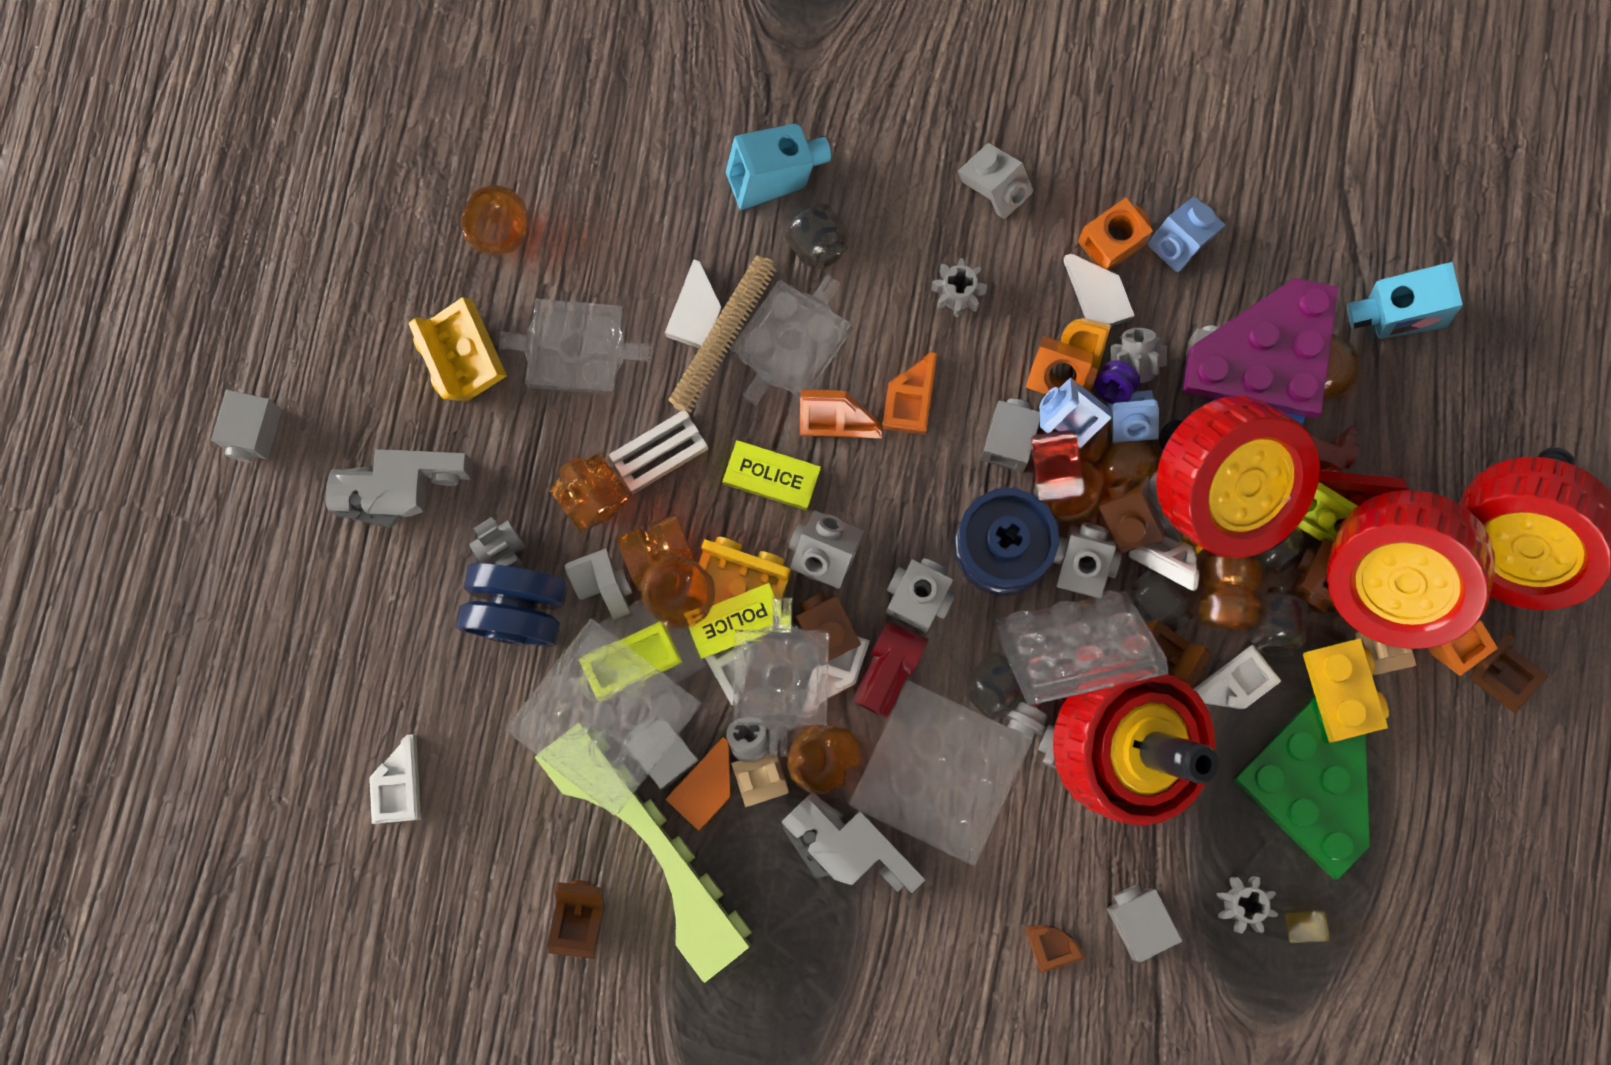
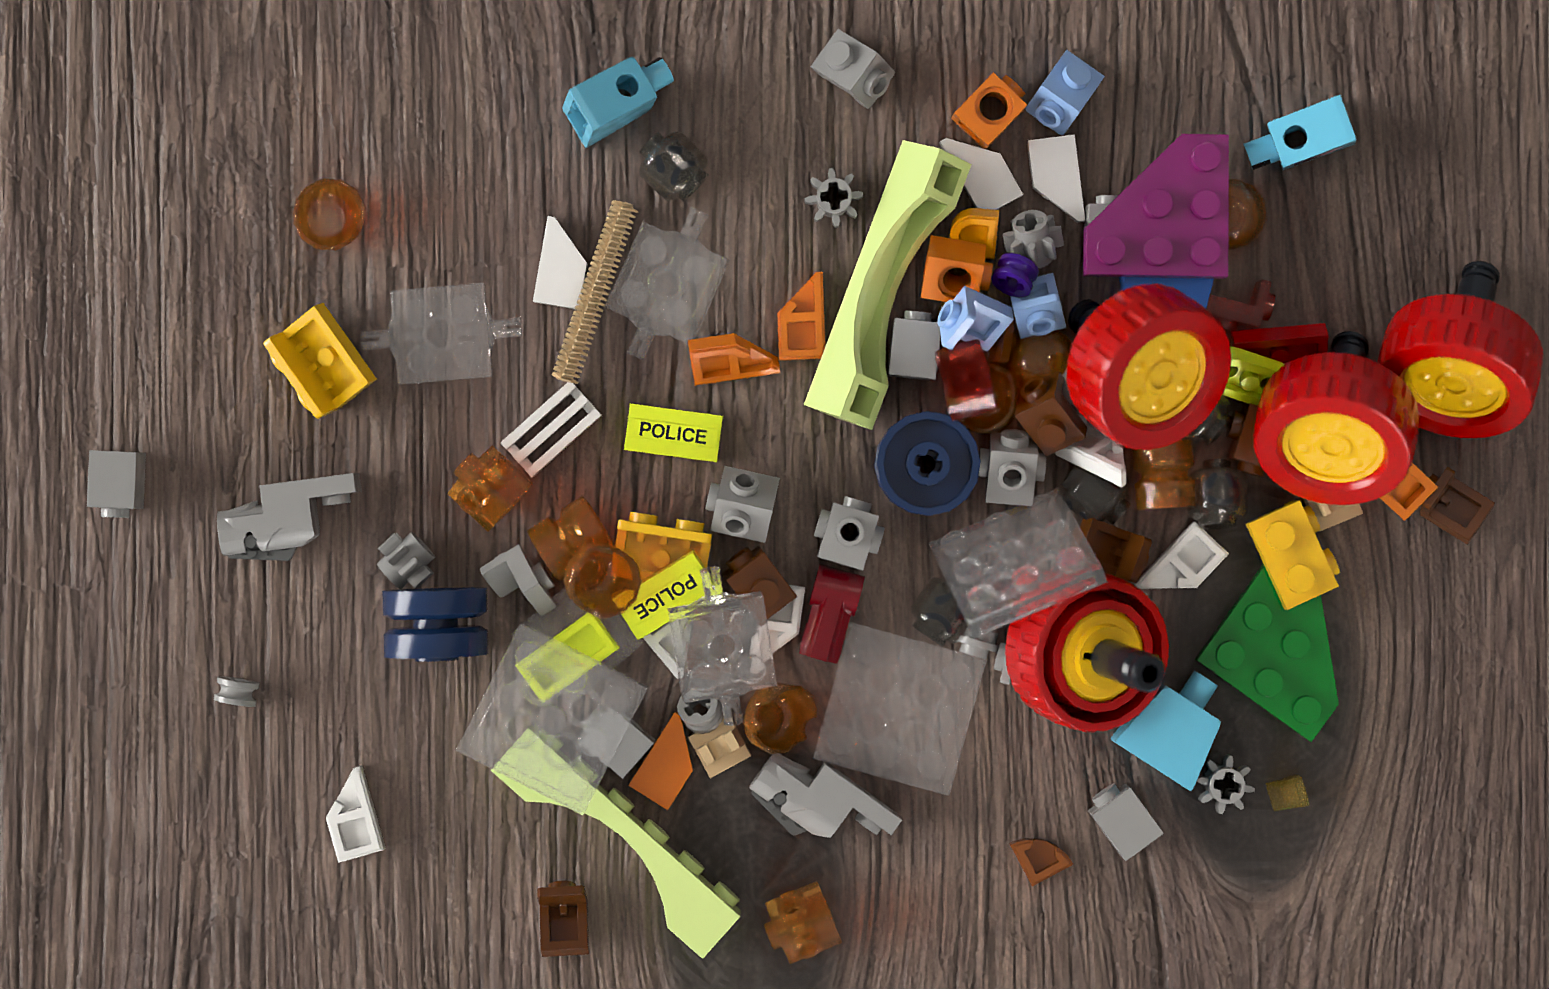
camera: 15 degrees left, 10 degrees up
(312, 640) = (236, 691): none -> light grey bush
(808, 966) = (801, 923): none -> clear orange brick
(951, 439) = (914, 201): none -> yellowish green arch
(1168, 304) = (1057, 174): none -> white tile
(1204, 843) = (1174, 731): none -> medium azure torso

